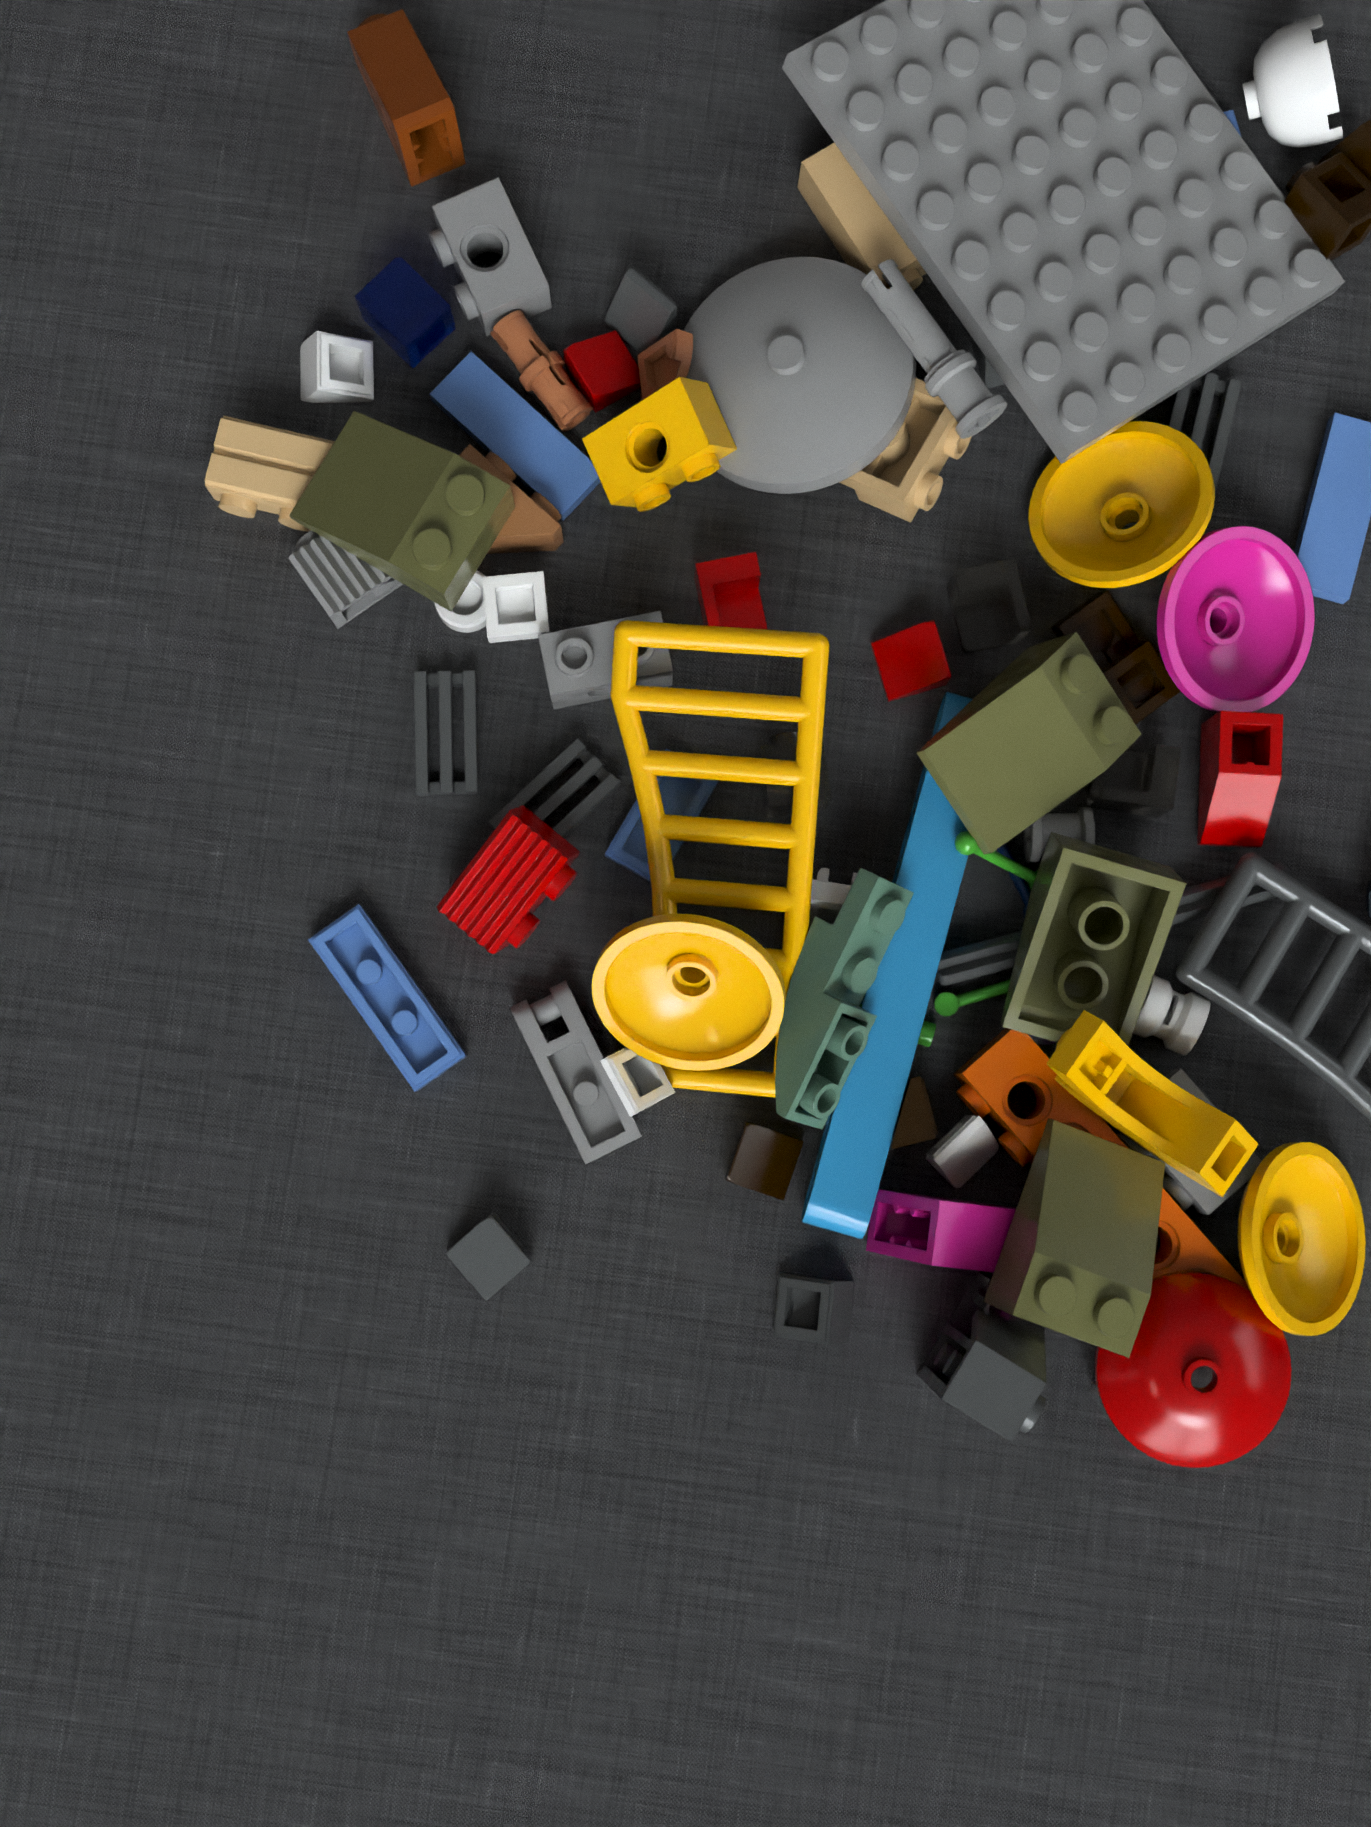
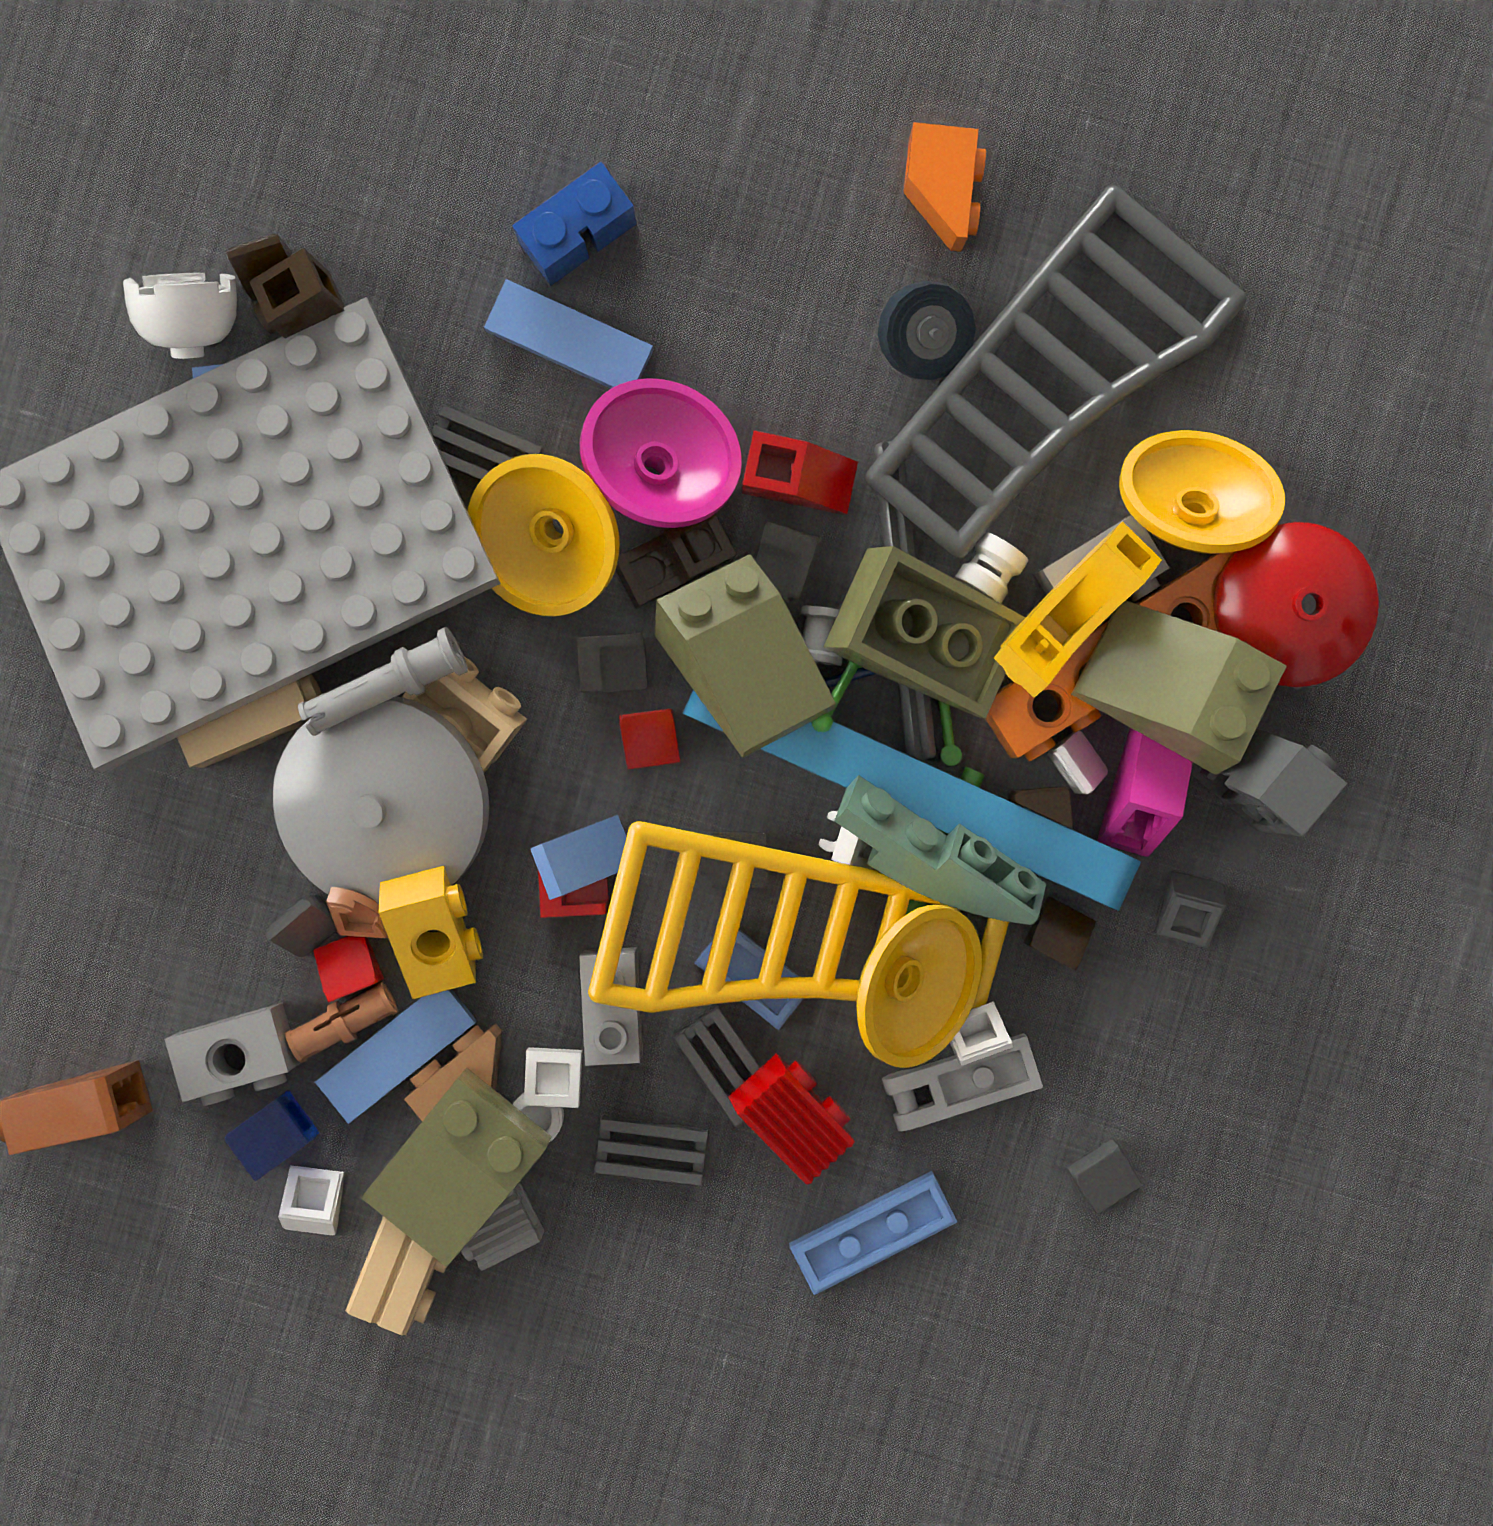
camera: 70 degrees left, 5 degrees up
(767, 592) = (580, 857): none -> medium blue tile

